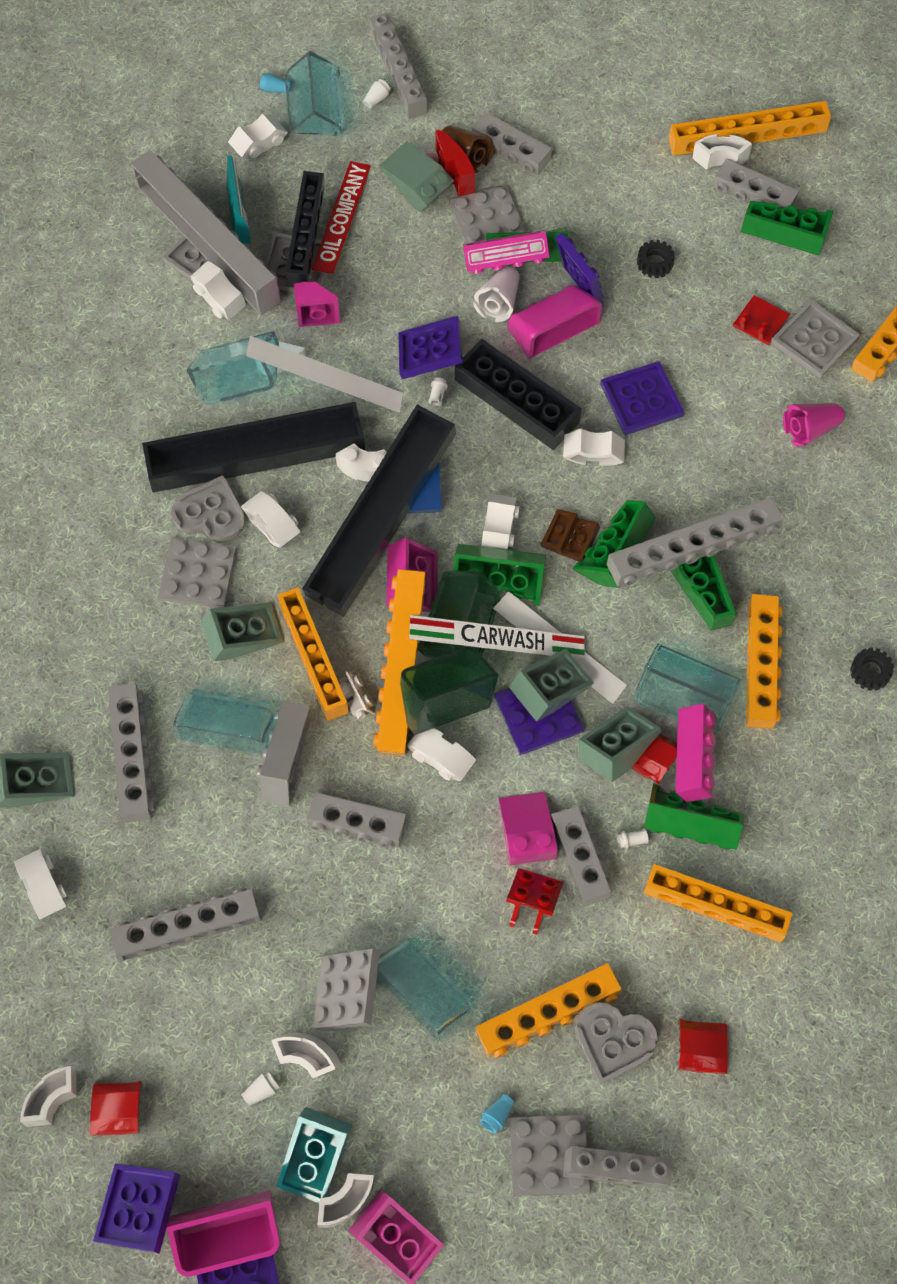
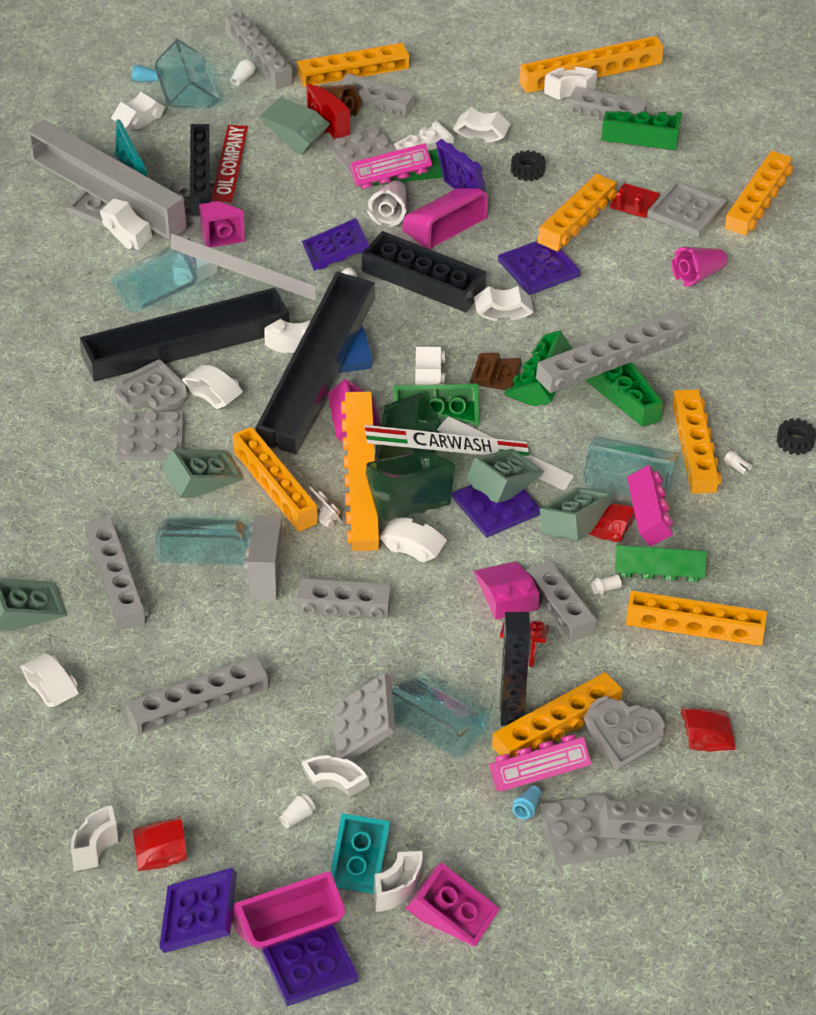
camera: 10 degrees left, 20 degrees down
(494, 97) = (358, 63): none -> light orange brick
(505, 974) = (514, 666): none -> black brick
(518, 1070) = (540, 763): none -> dark pink brick
(555, 210) = (428, 136): none -> white wing
(610, 196) = (481, 125): none -> white brick
(695, 333) = (577, 212): none -> light orange brick
(802, 695) = (732, 459): none -> white pin

